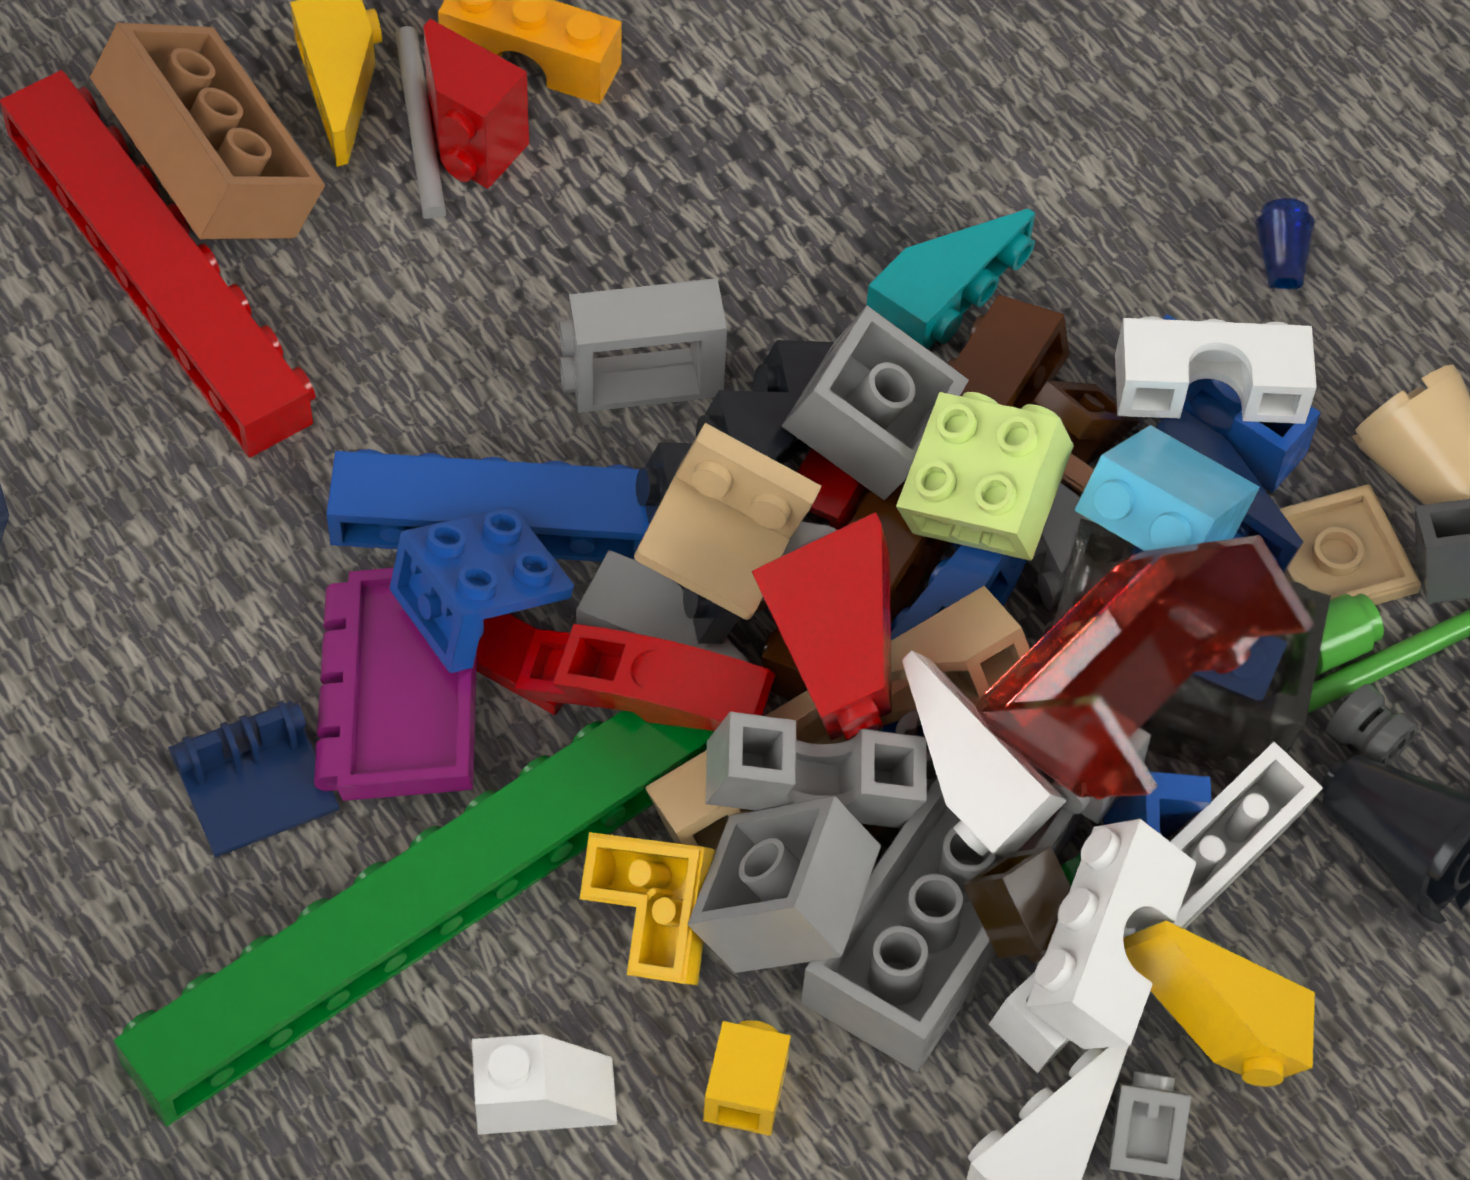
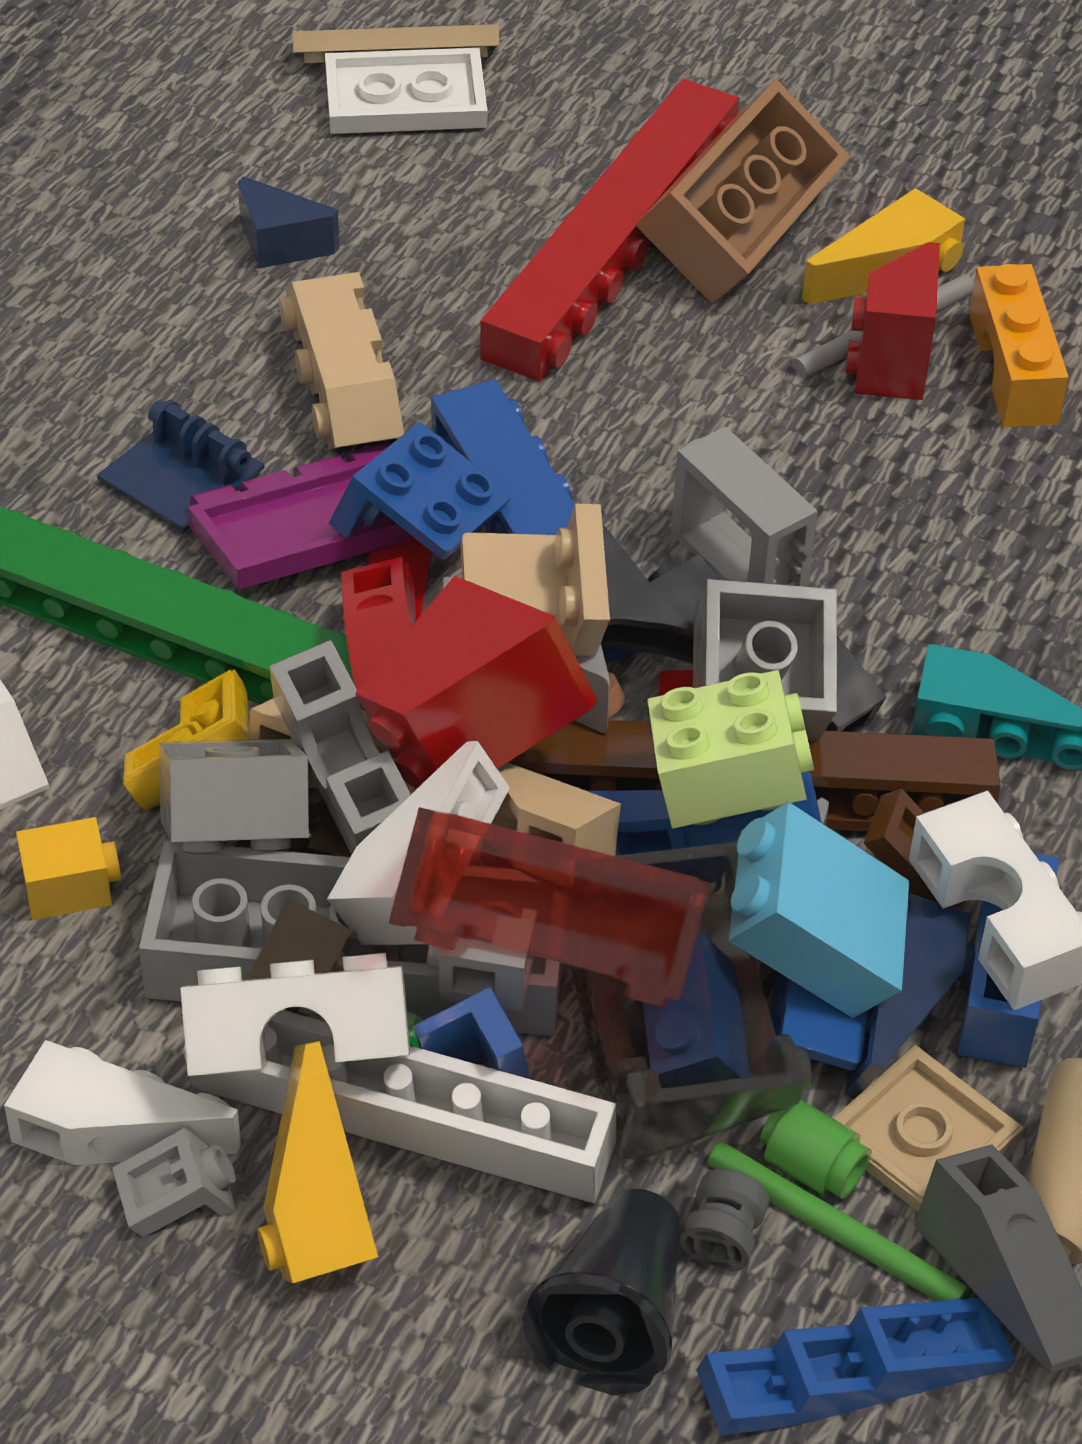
camera: 65 degrees right, 10 degrees down
(209, 565) = (342, 361): none -> tan brick

